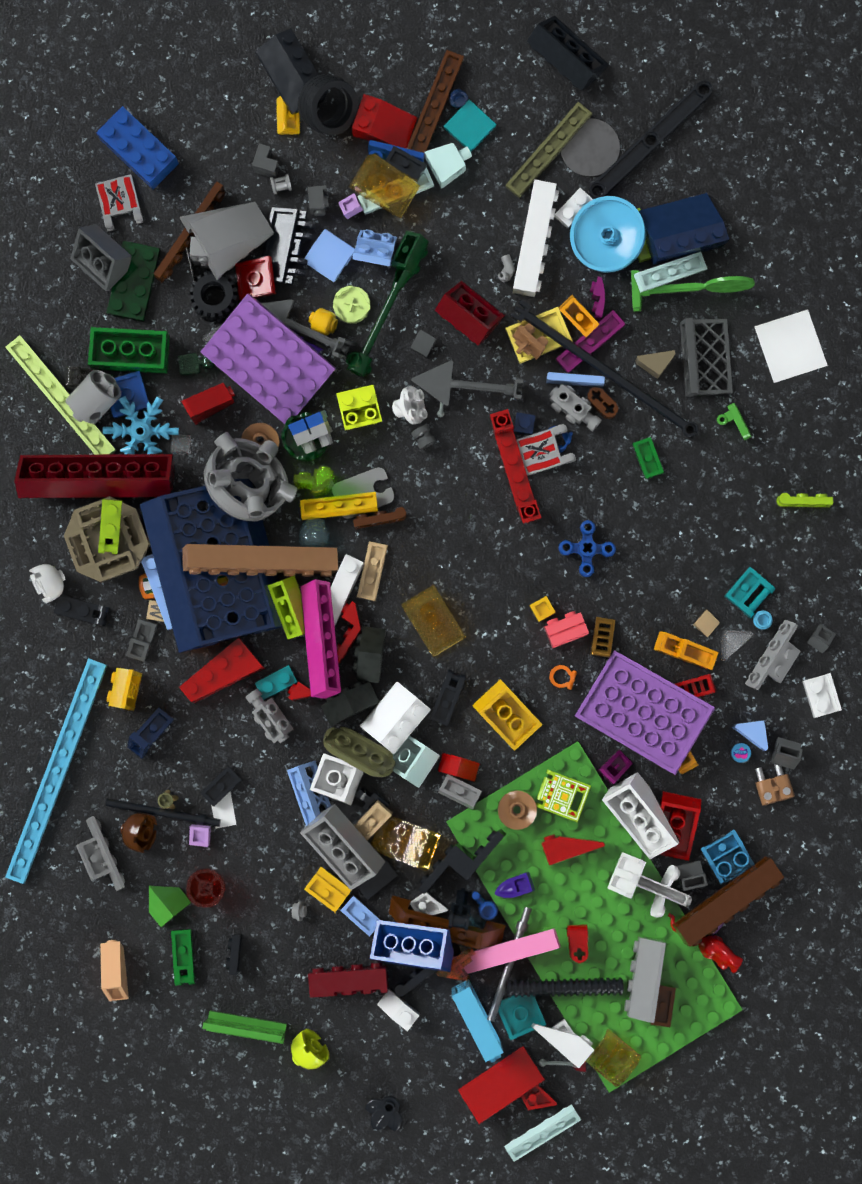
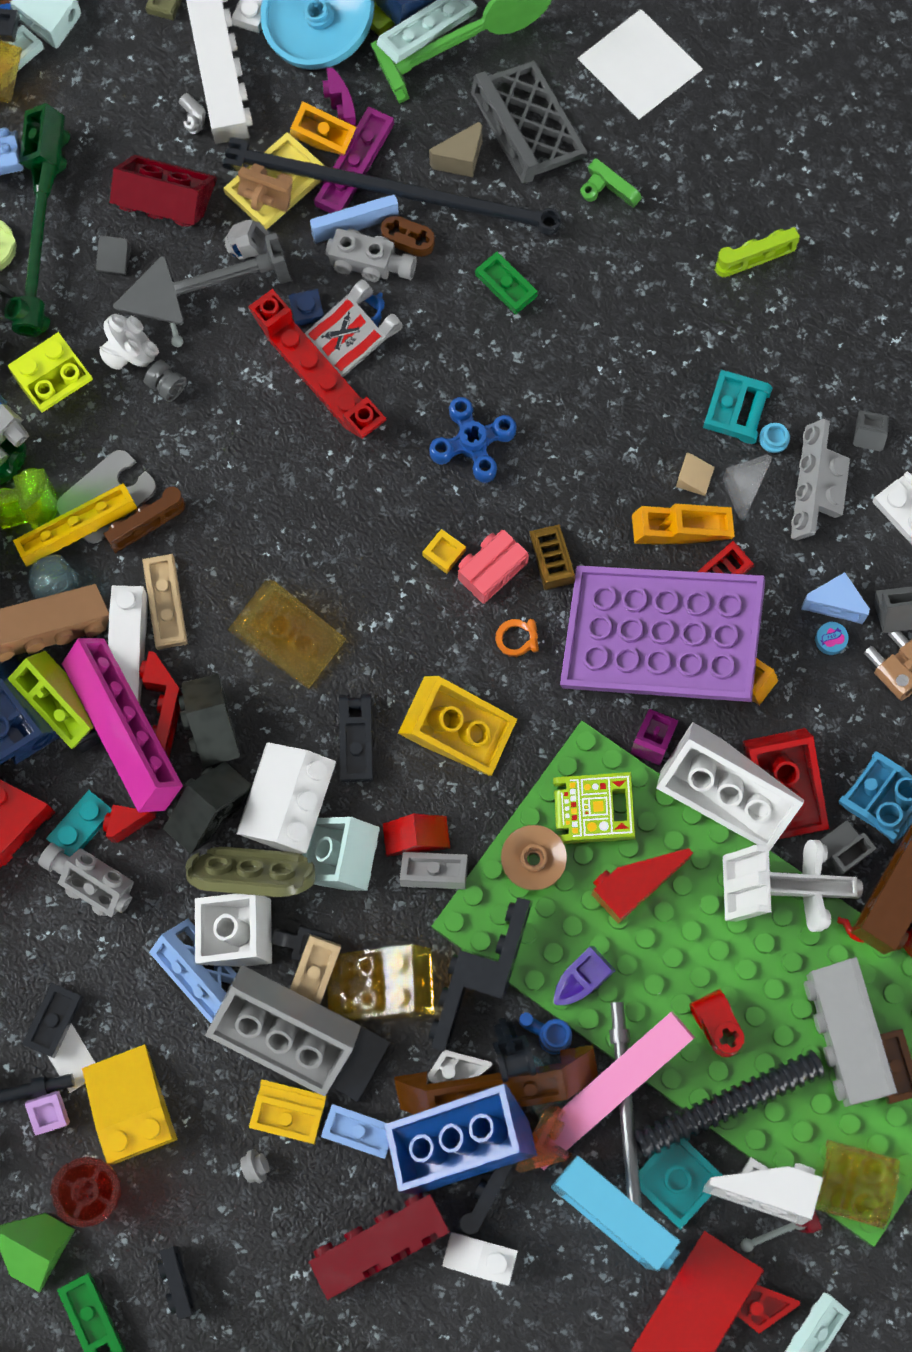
camera: 25 degrees left, 10 degrees down
(244, 849) = (128, 1105): none -> yellow slope
(506, 369) = (246, 239): none -> light grey rock

